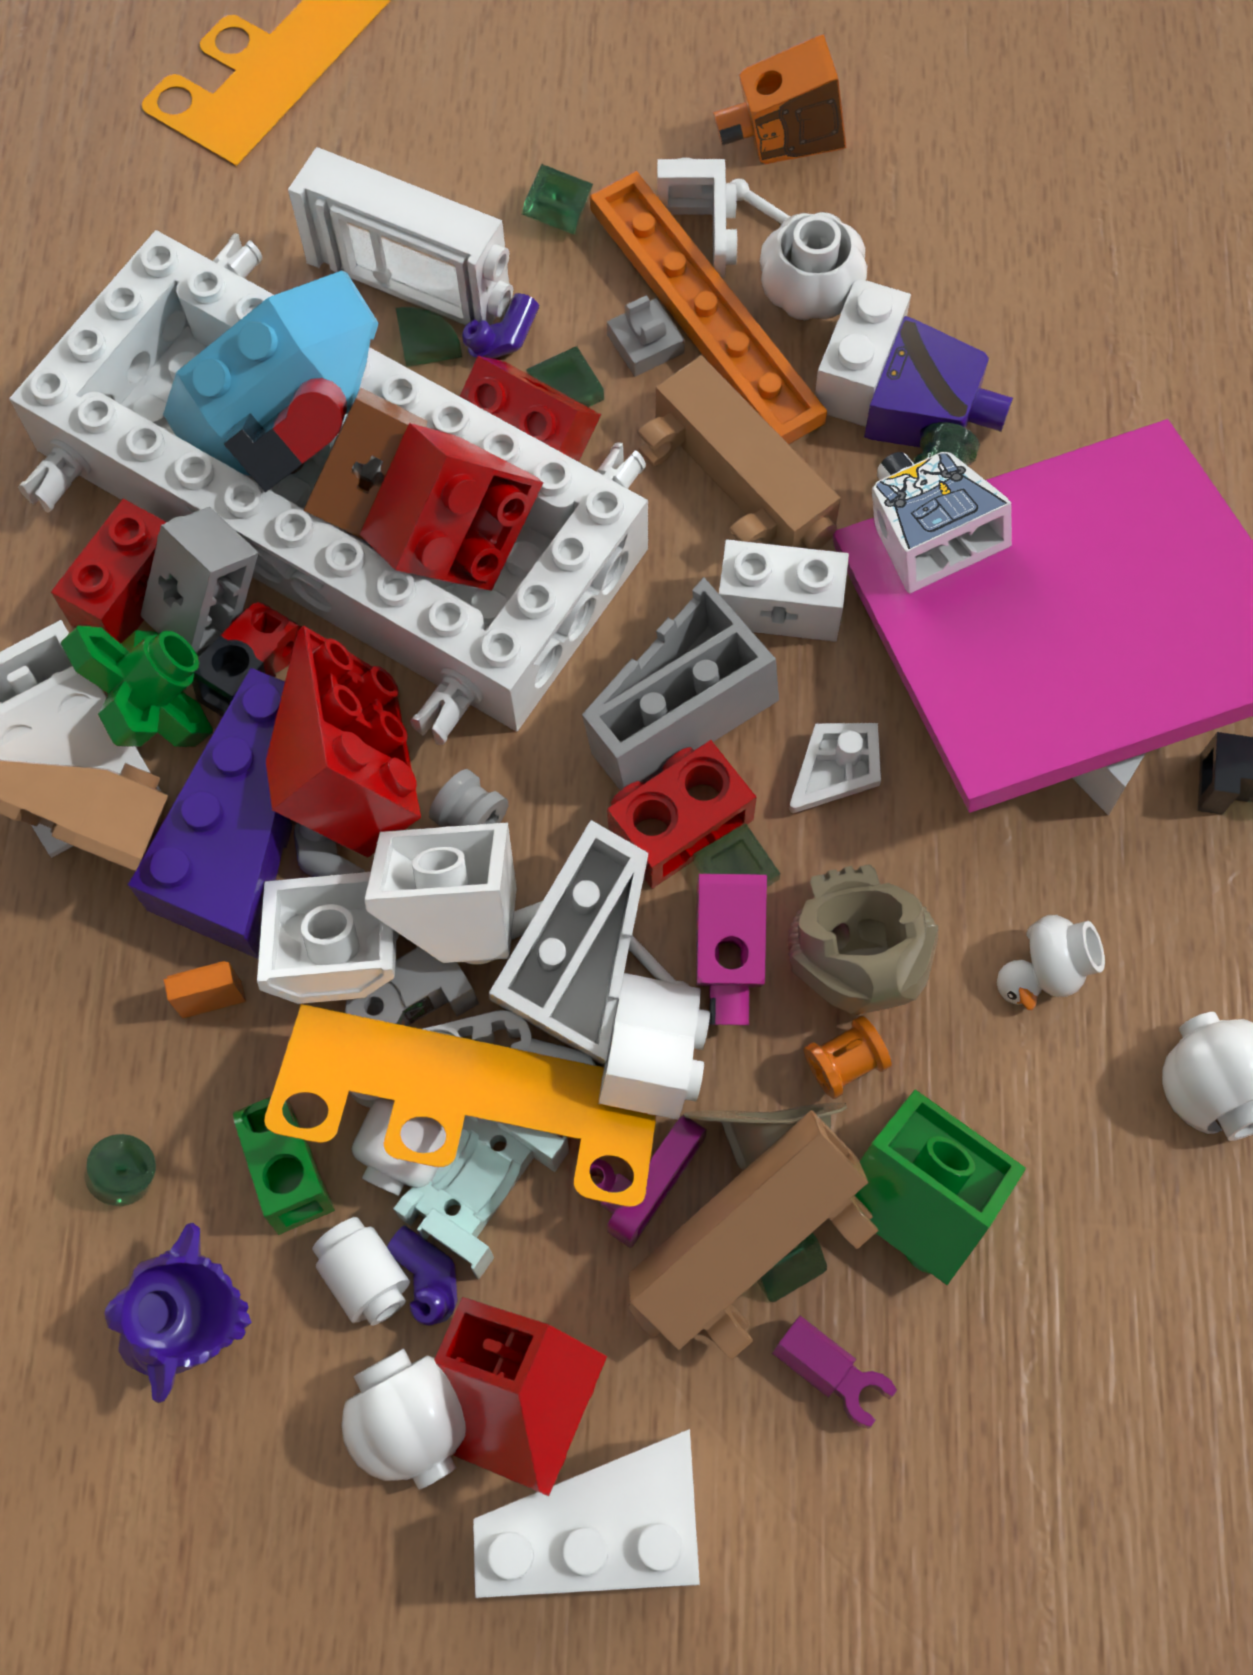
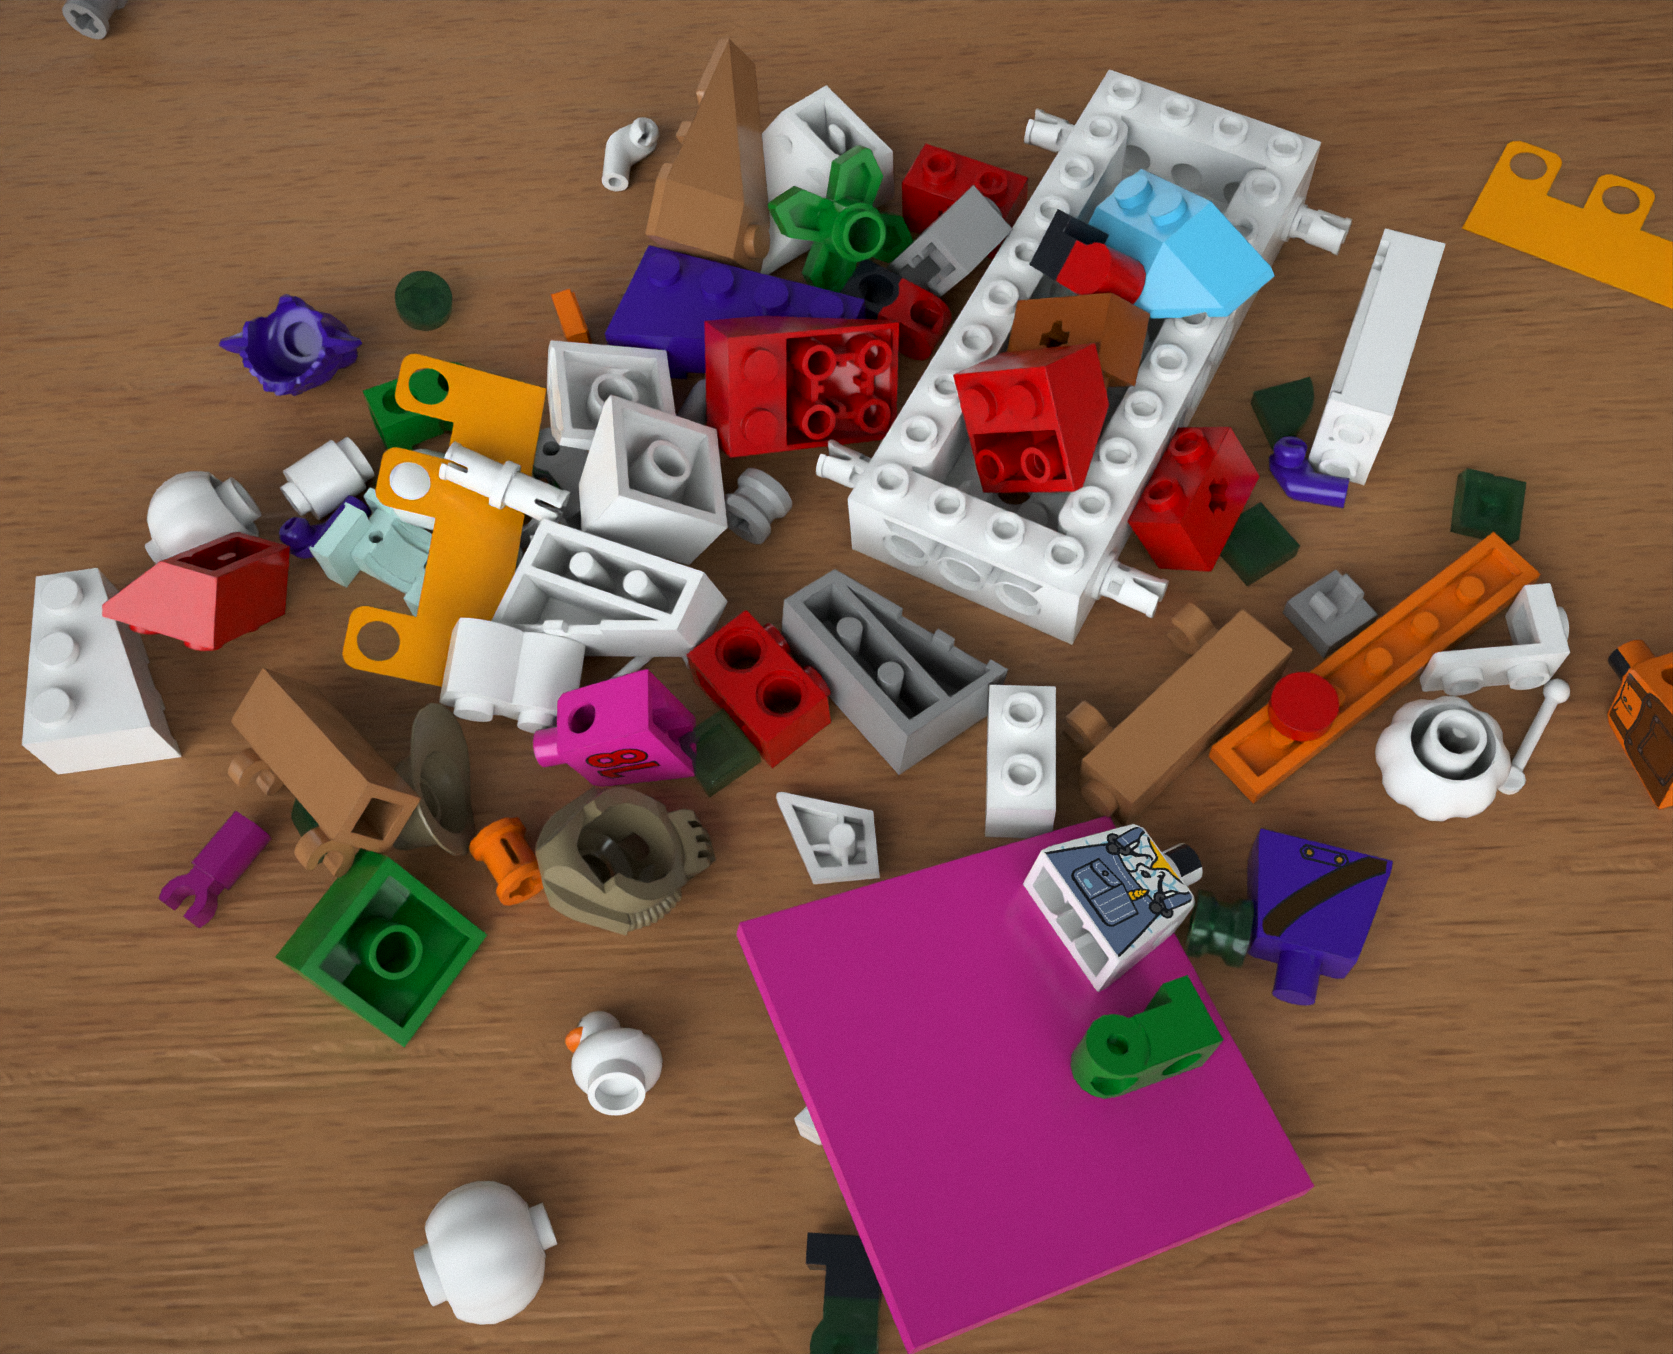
camera: 90 degrees right, 5 degrees down
(438, 1035) = (503, 484): none -> white pin
(664, 1172) = (382, 692): magenta piece -> none
(753, 359) = (1303, 706): none -> red tile
(860, 349) = (1352, 817): white brick -> none
(1070, 500) = (1151, 1046): none -> green leg

